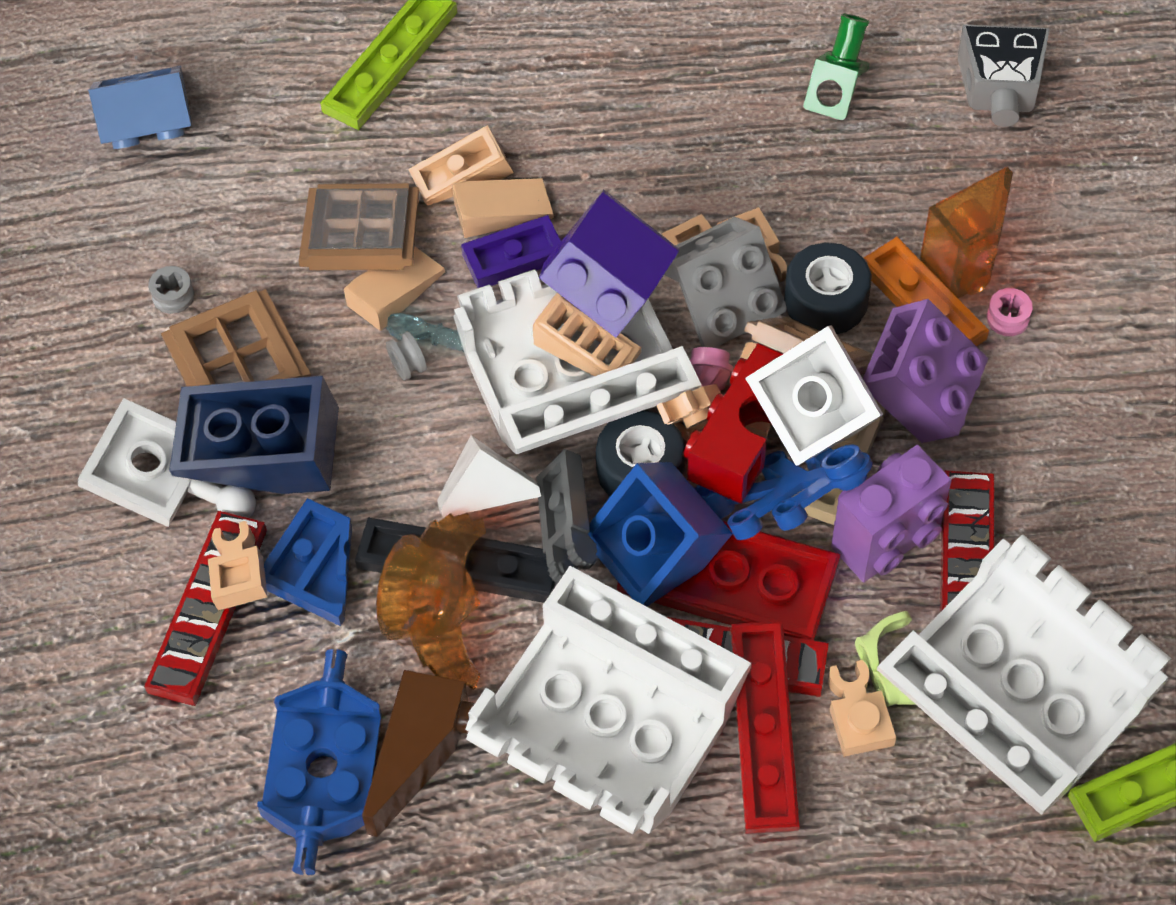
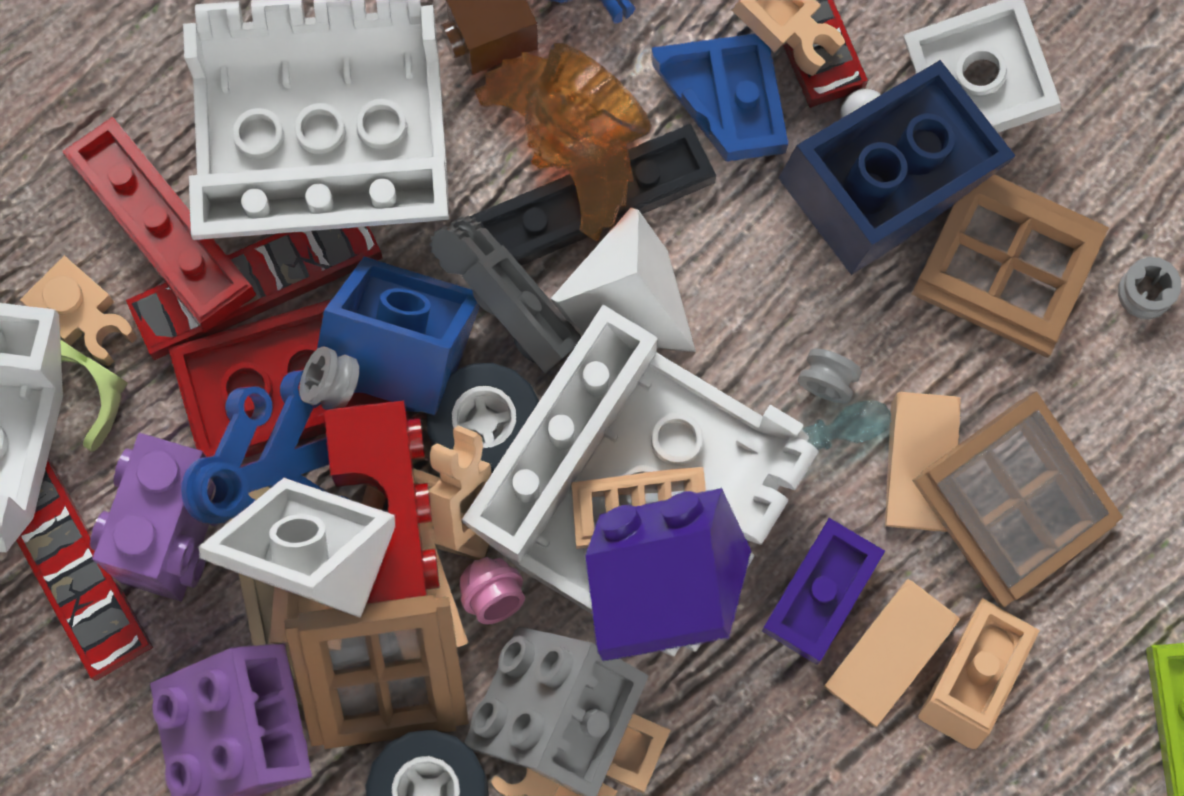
camera: 140 degrees right, 15 degrees up
(739, 504) = (329, 379): none -> light grey bush

